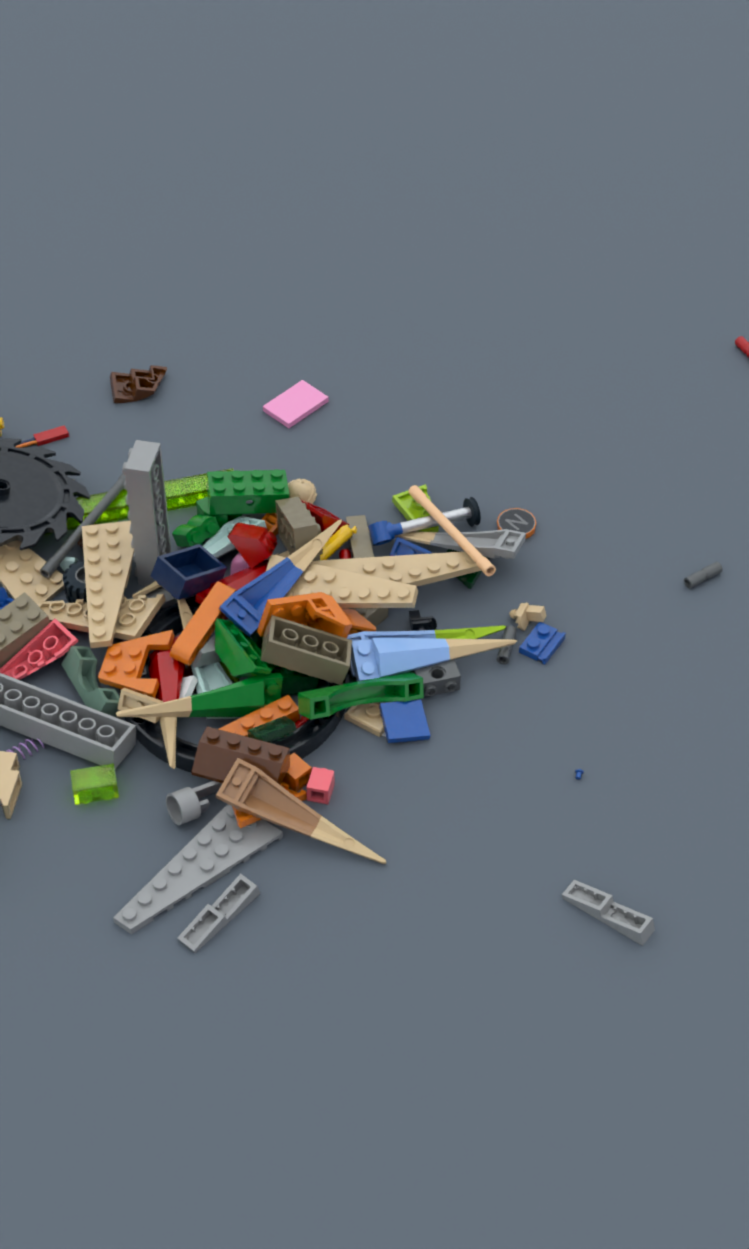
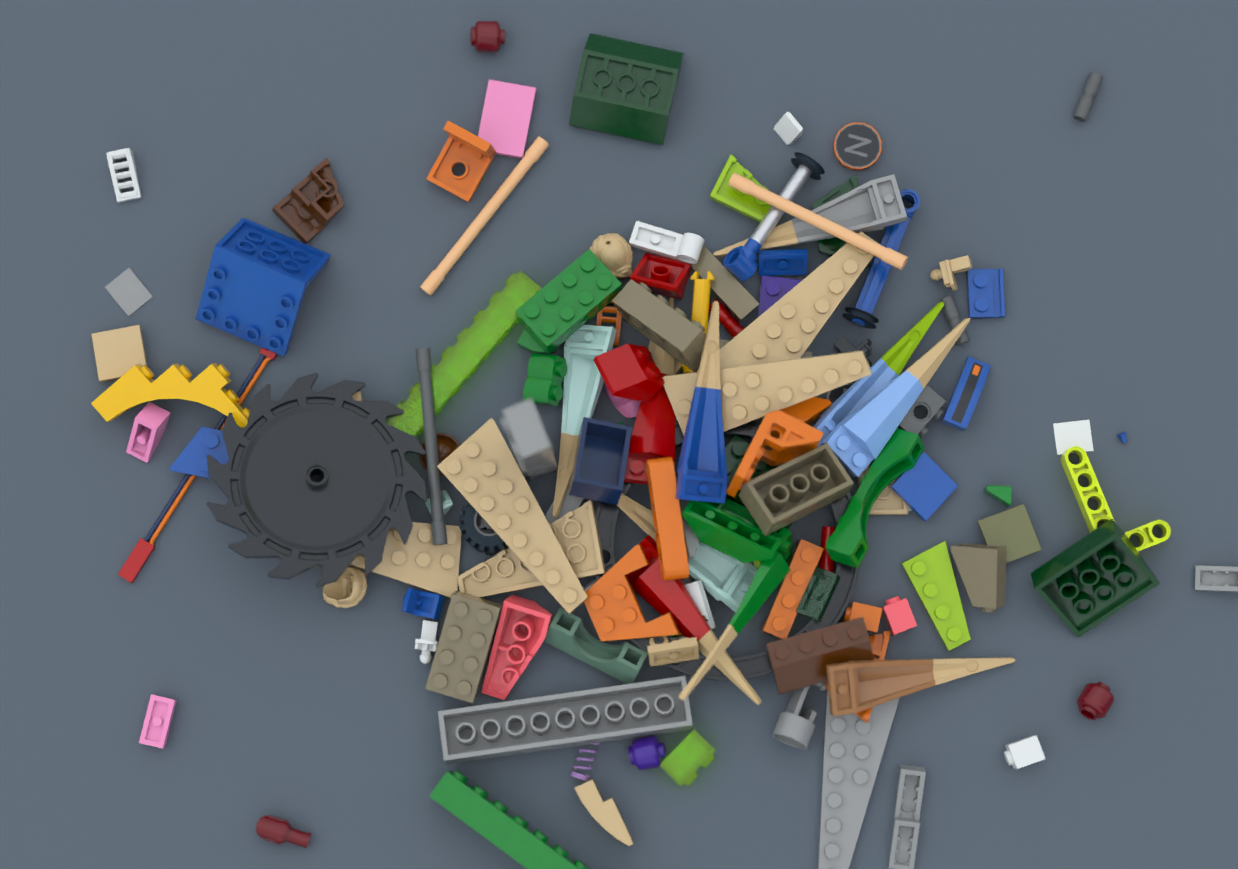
camera: 30 degrees left, 35 degrees up
(41, 318) = (120, 154): none -> white slope
(58, 395) = (258, 284): none -> blue bracket
(66, 761) = (646, 752): none -> dark purple head
(179, 453) = (531, 156): none -> light nougat piece
(255, 402) = (465, 149): none -> orange bracket
(319, 358) = (487, 36): none -> dark red head
(342, 506) = (667, 243): none -> white plate
(342, 919) = (1024, 752): none -> white brick
(362, 792) = (937, 589): none -> lime wing
(381, 420) = (625, 89): none -> dark green slope
(404, 789) = (982, 573): none -> dark tan slope
(425, 917) = (1095, 700): none -> dark red head
(443, 783) = (1010, 529): none -> olive tile
(457, 753) = (999, 493): none -> green slope
(477, 490) = (788, 128): none -> white slope
(478, 686) = (966, 394): none -> blue slope
(484, 831) = (1094, 578): none -> dark green slope
(520, 567) = (879, 270): none -> blue piece
(521, 830) = (1103, 512): none -> neon yellow beam
(541, 756) = (1073, 434): none -> white sticker

